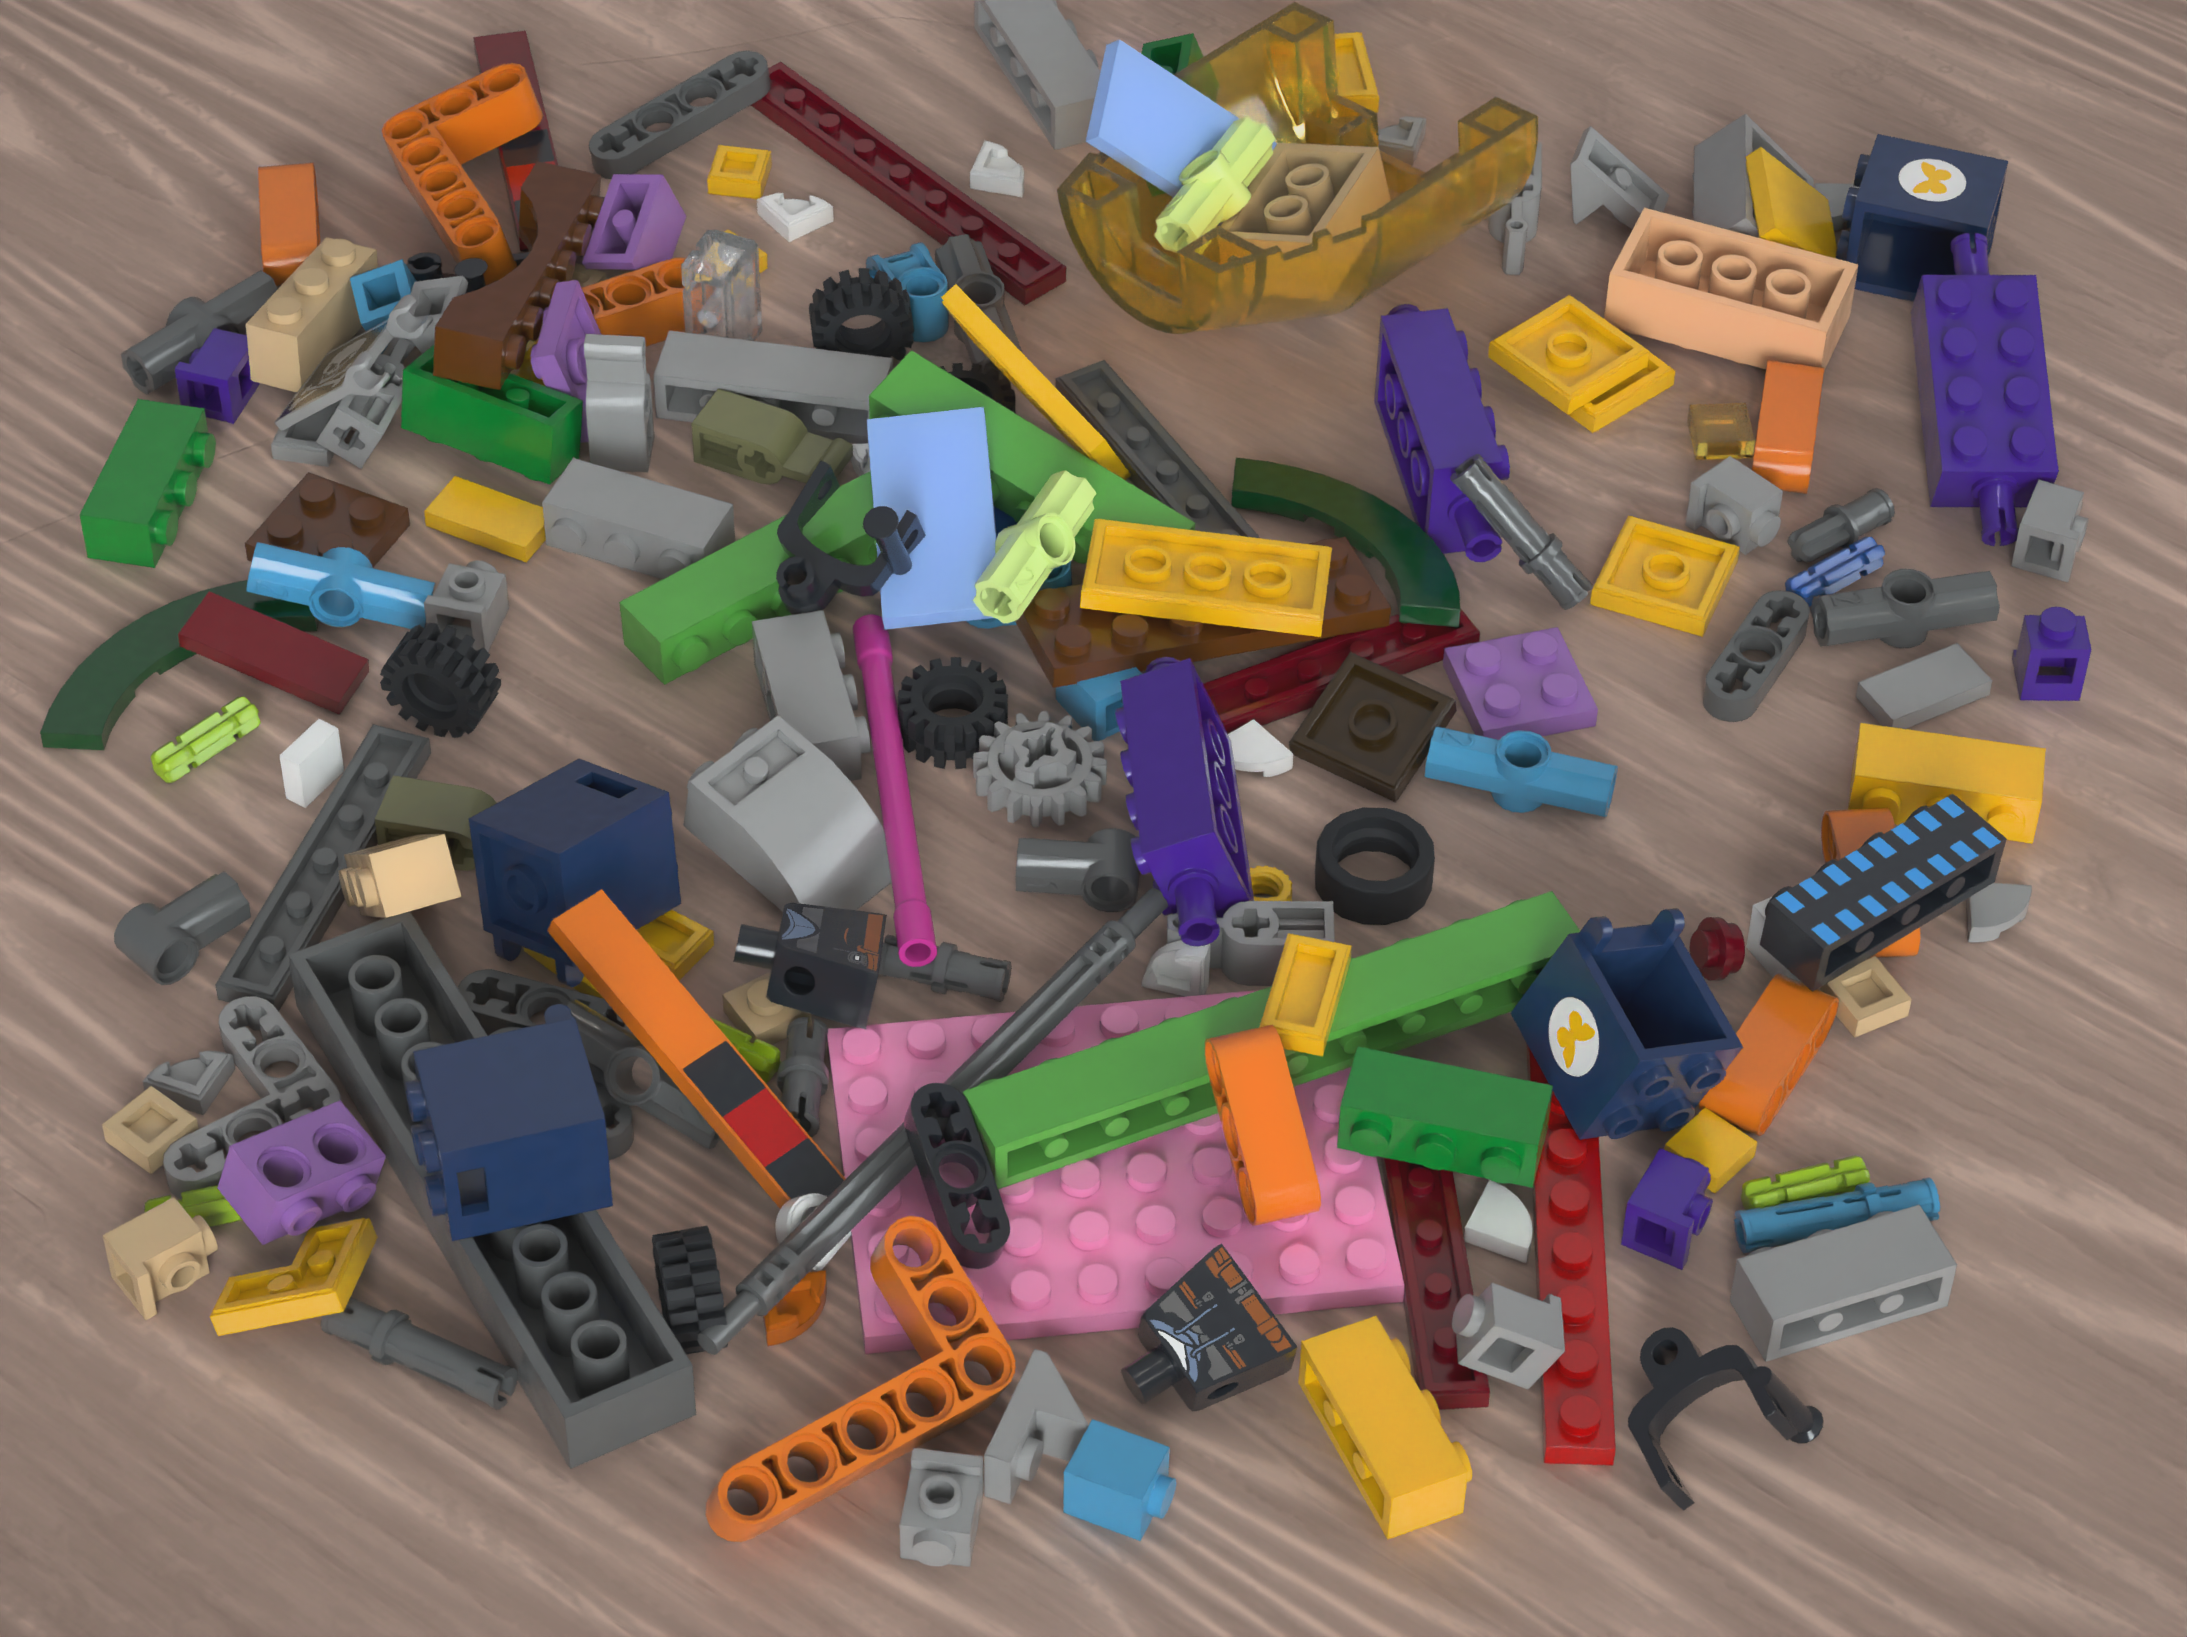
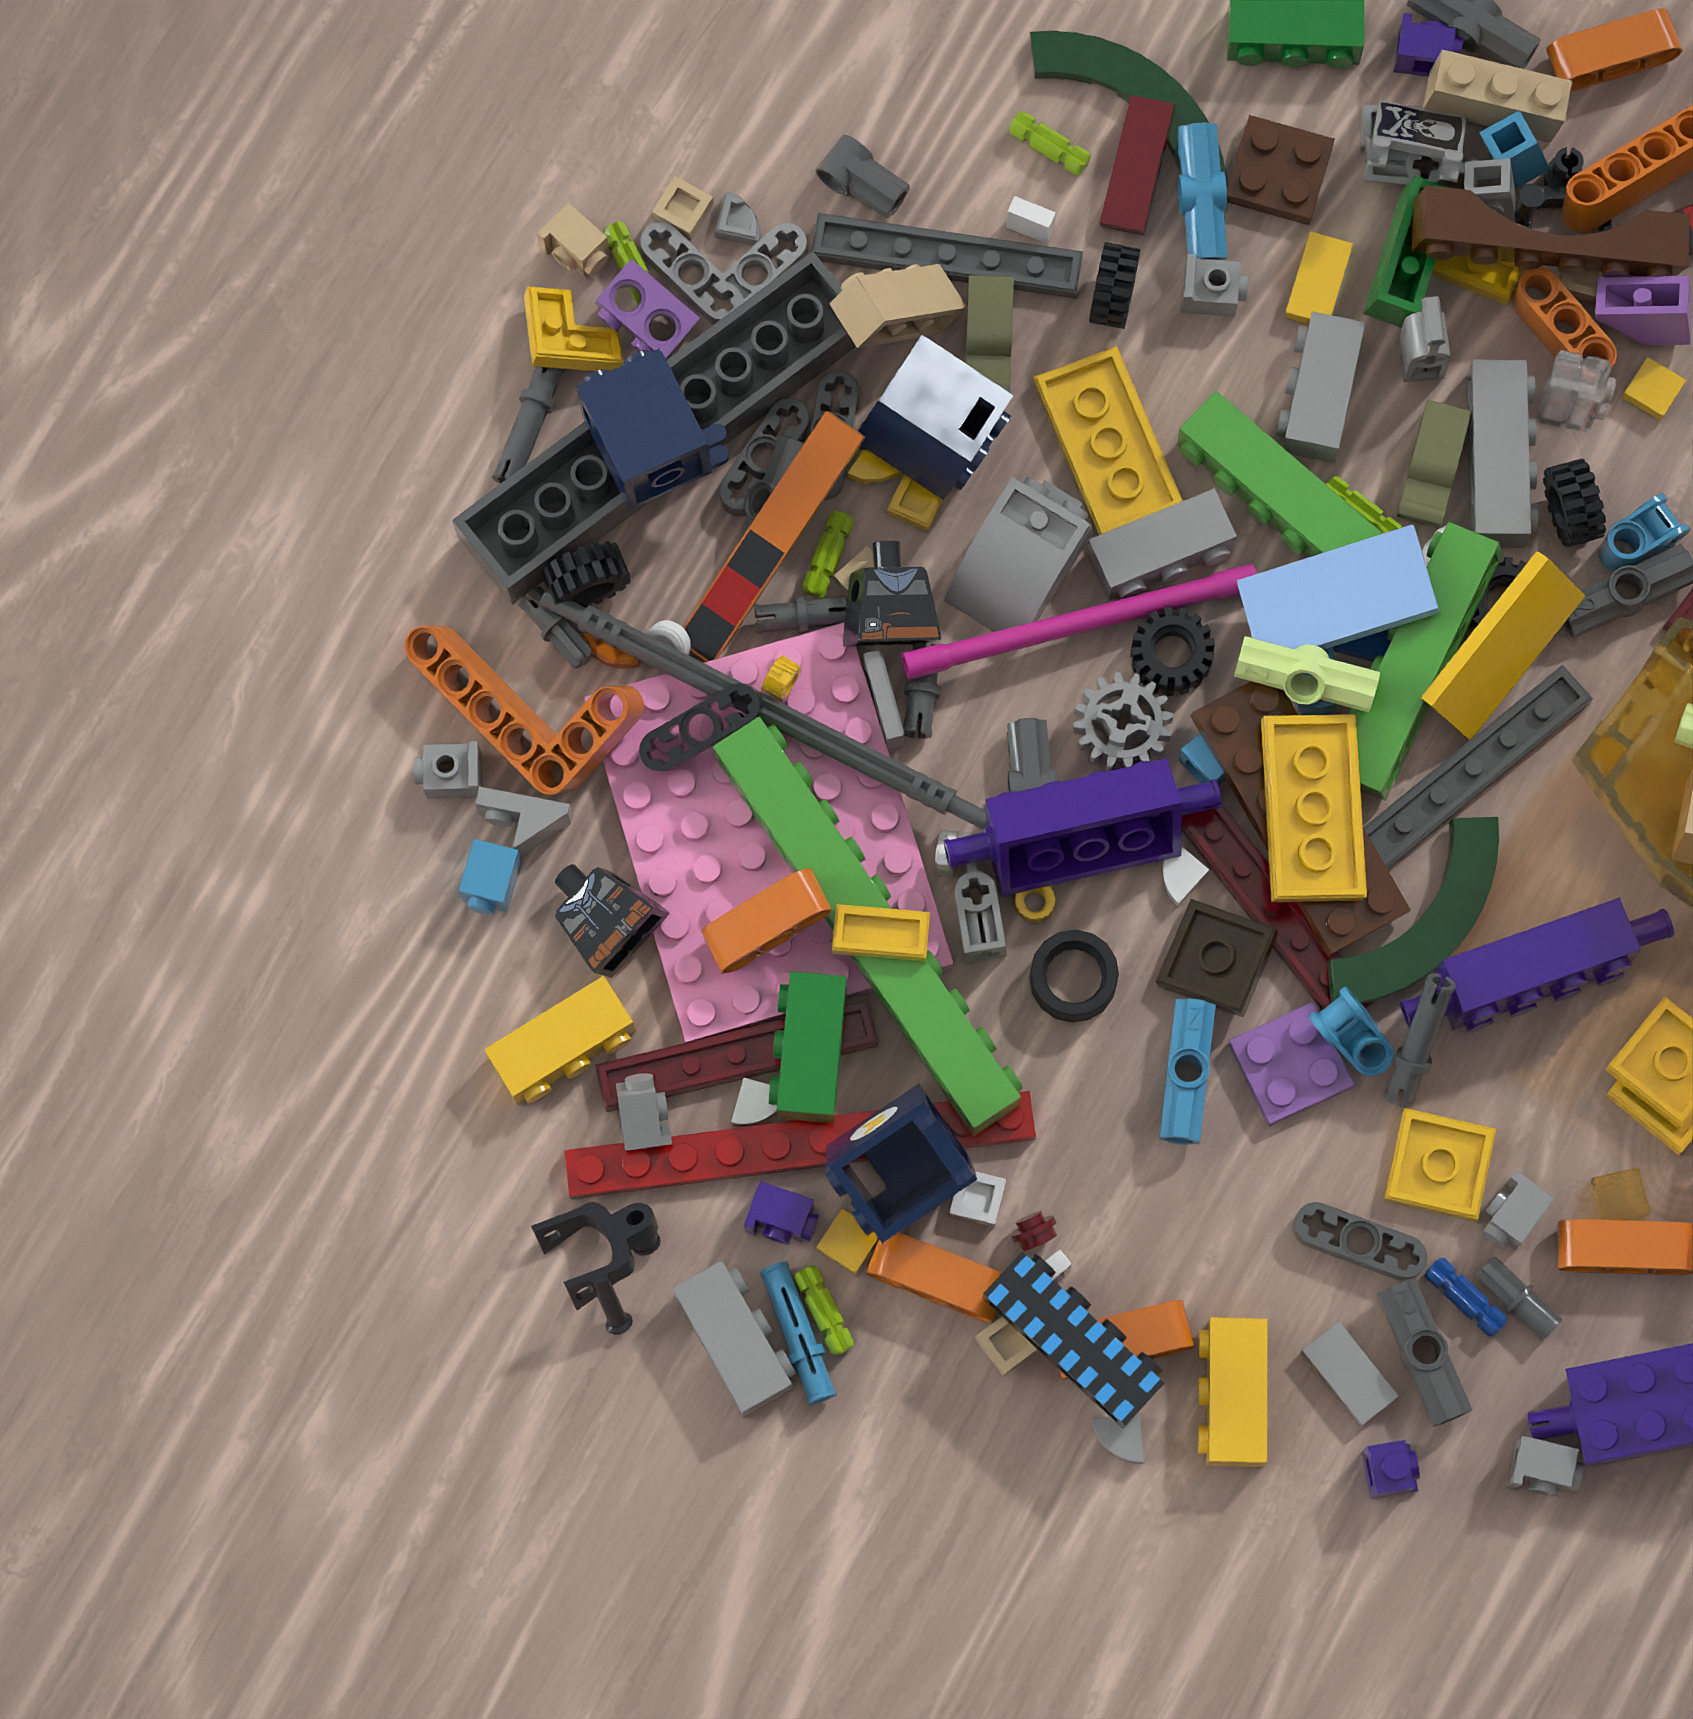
camera: 85 degrees right, 30 degrees up
(560, 347) = (1478, 295): medium lavender plate -> none
(643, 735) = (1106, 440): none -> yellow tile
(752, 1356) = (557, 630): none -> dark grey axle
(813, 577) = (1263, 522): black piece -> none
(898, 1080) = (781, 678): none -> yellow axle
(950, 995) = (883, 699): none -> light grey tile
(1498, 594) = (1351, 1028): none -> dark azure piece

